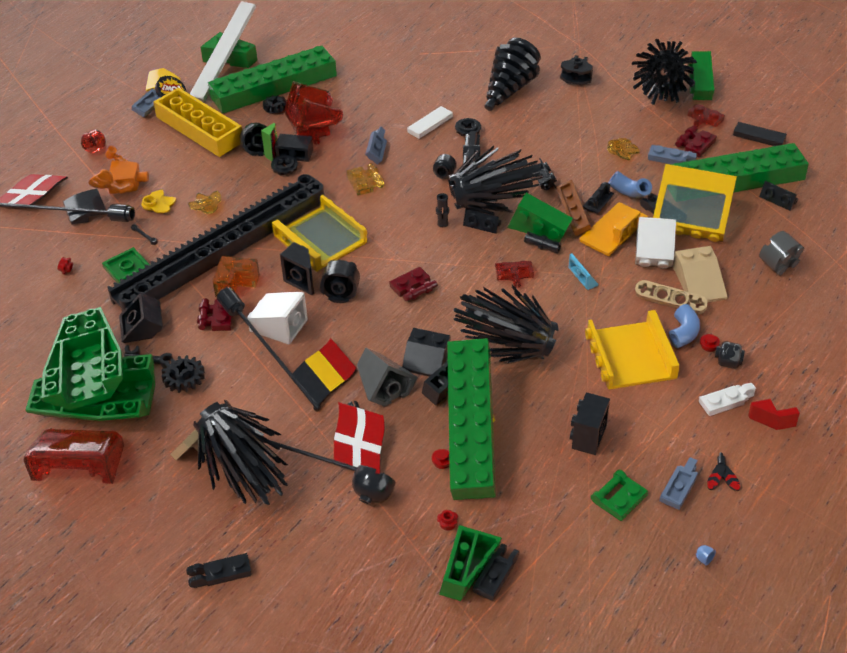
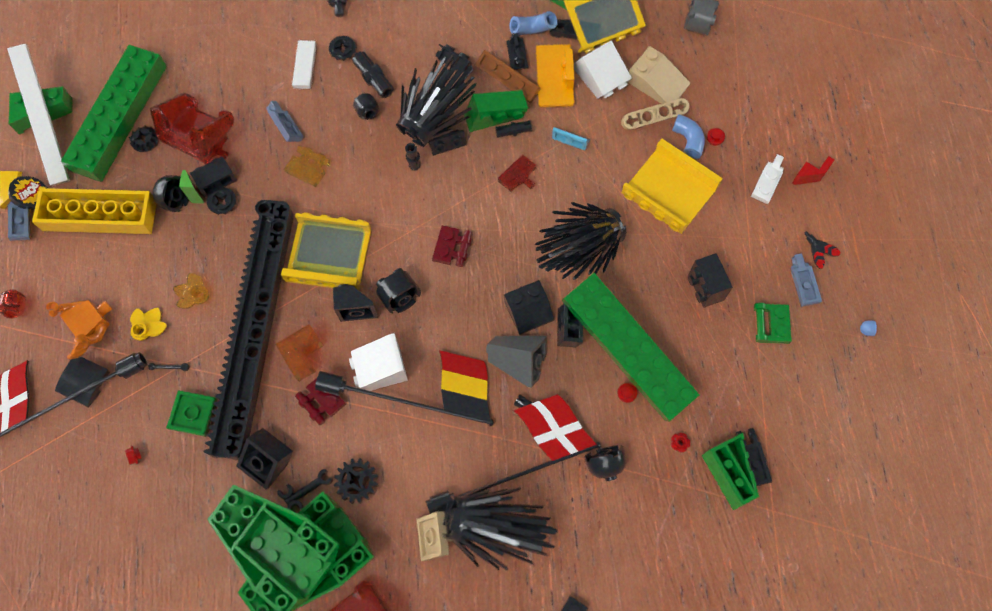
camera: 40 degrees left, 25 degrees up
(730, 354) = (740, 138): black head -> none

